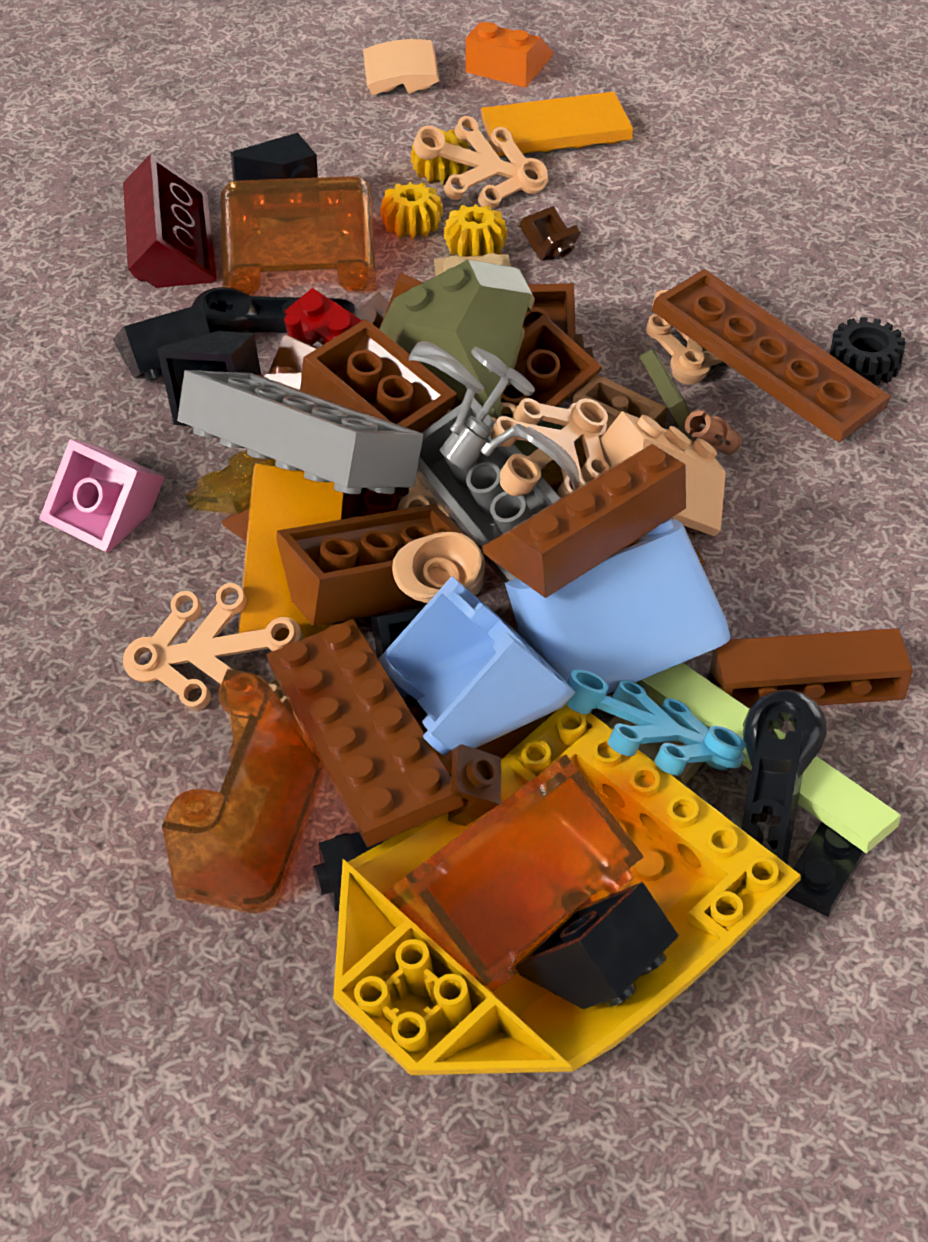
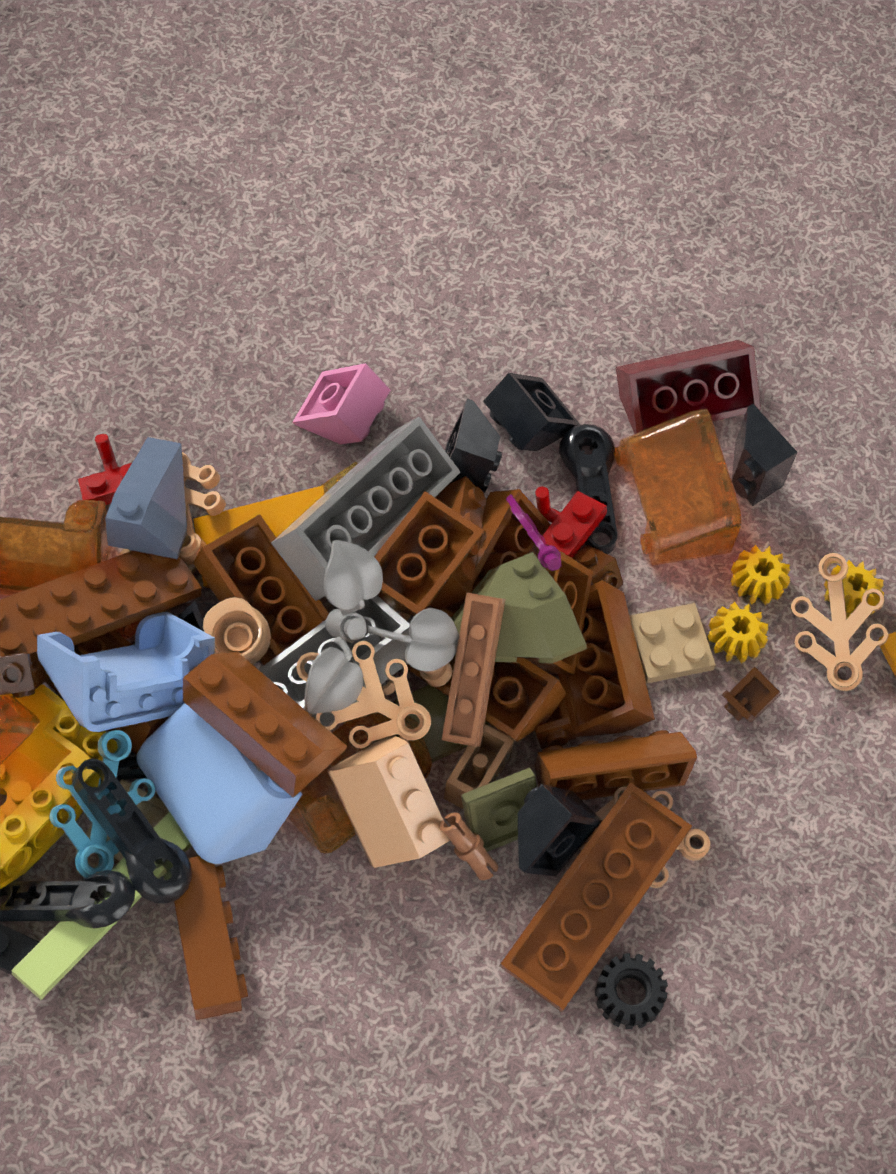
camera: 75 degrees right, 15 degrees up
(154, 724) = (104, 484): none -> red plate
(202, 653) = (150, 502): none -> sand blue wedge
(345, 311) = (548, 555): none -> magenta piece
(550, 376) = (473, 669): none -> nougat tile
(622, 318) = (602, 768): none -> dark orange slope
(707, 357) = (552, 829): none -> black slope
(730, 672) = (135, 837): none -> black beam

